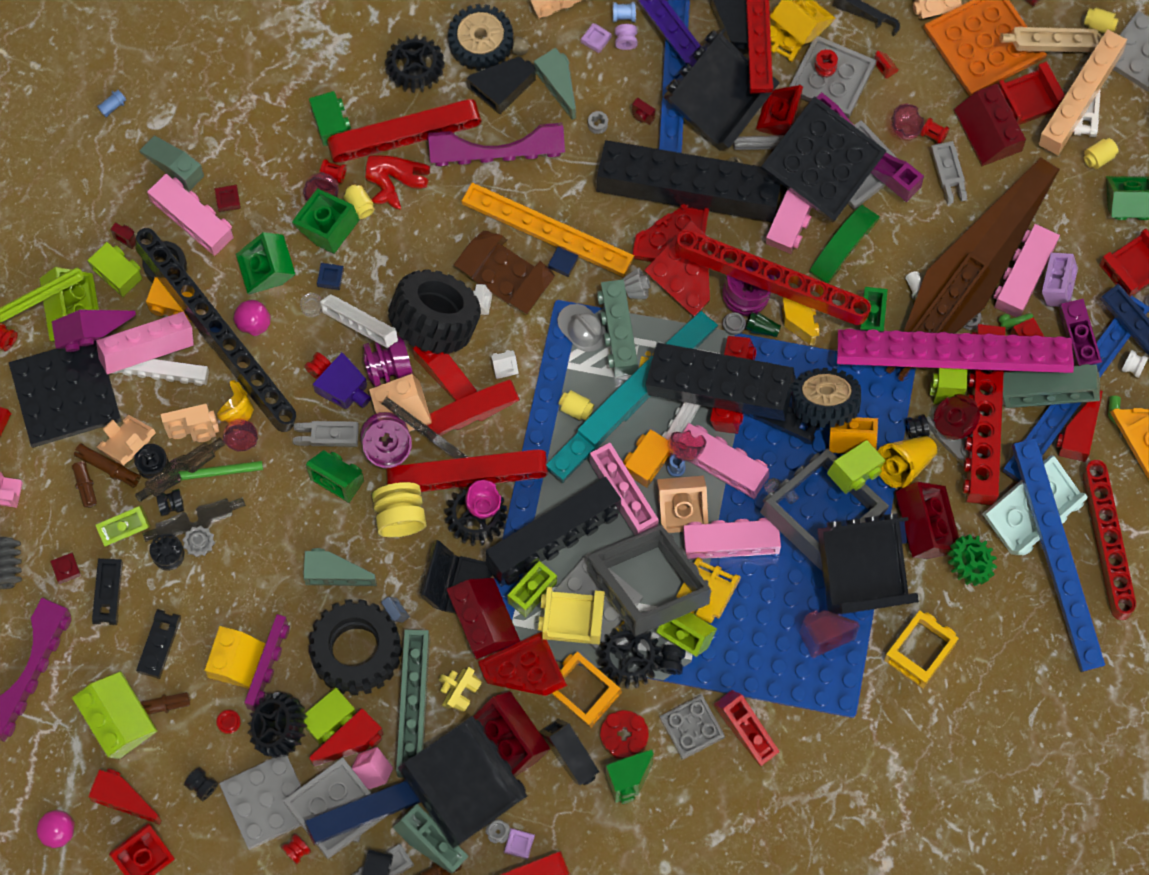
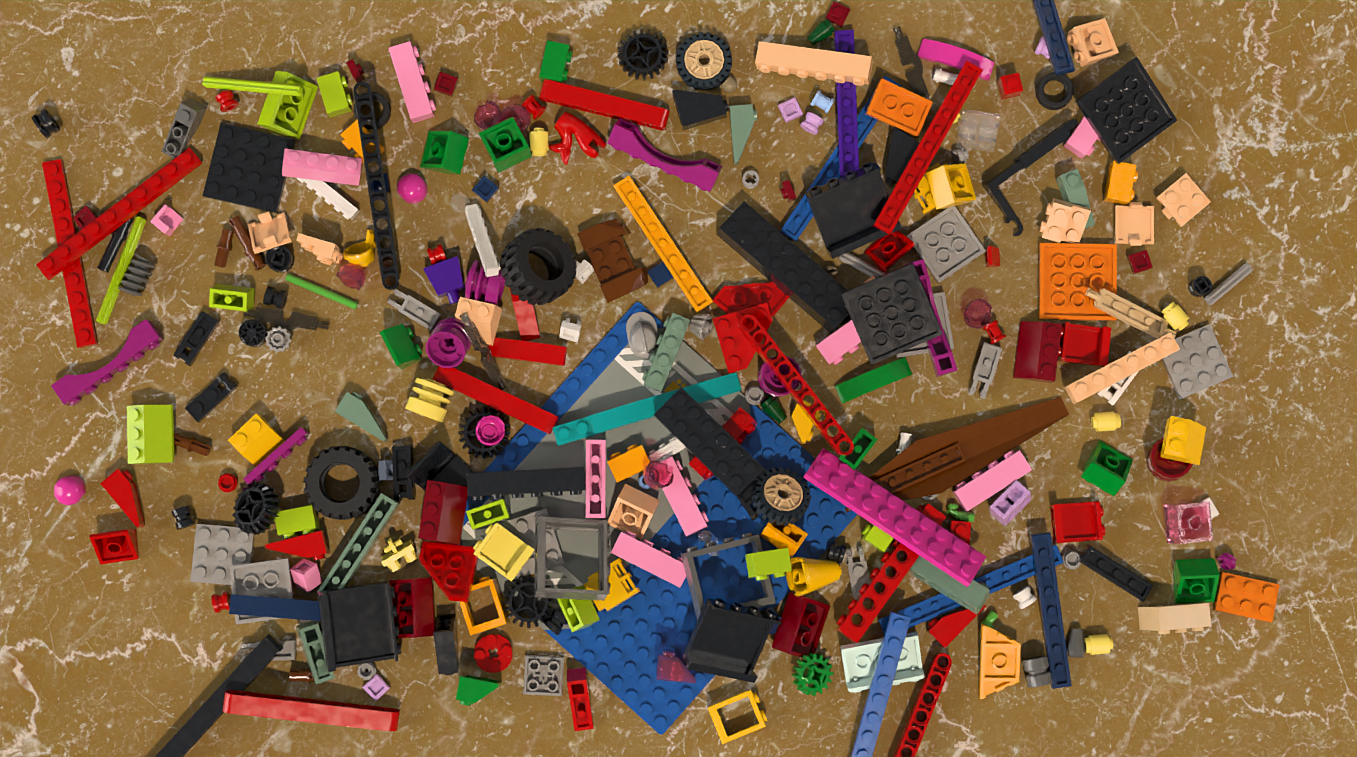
camera: 30 degrees right, 15 degrees up
(65, 568) = (177, 303): dark red plate -> none
(86, 326) = (284, 137): magenta slope -> none
(169, 476) = (284, 278): clear smoke piece -> none
(173, 162) = (422, 31): sand green slope -> none
(289, 202) = (487, 115): none -> clear pink hair
(414, 605) = (402, 461): none -> black plate
(576, 405) = (601, 393): light yellow brick -> none
(827, 68) = (942, 235): red wheel -> none
(956, 417) = (866, 564): dark red tile -> none
(1079, 329) = (997, 554): magenta slope -> none

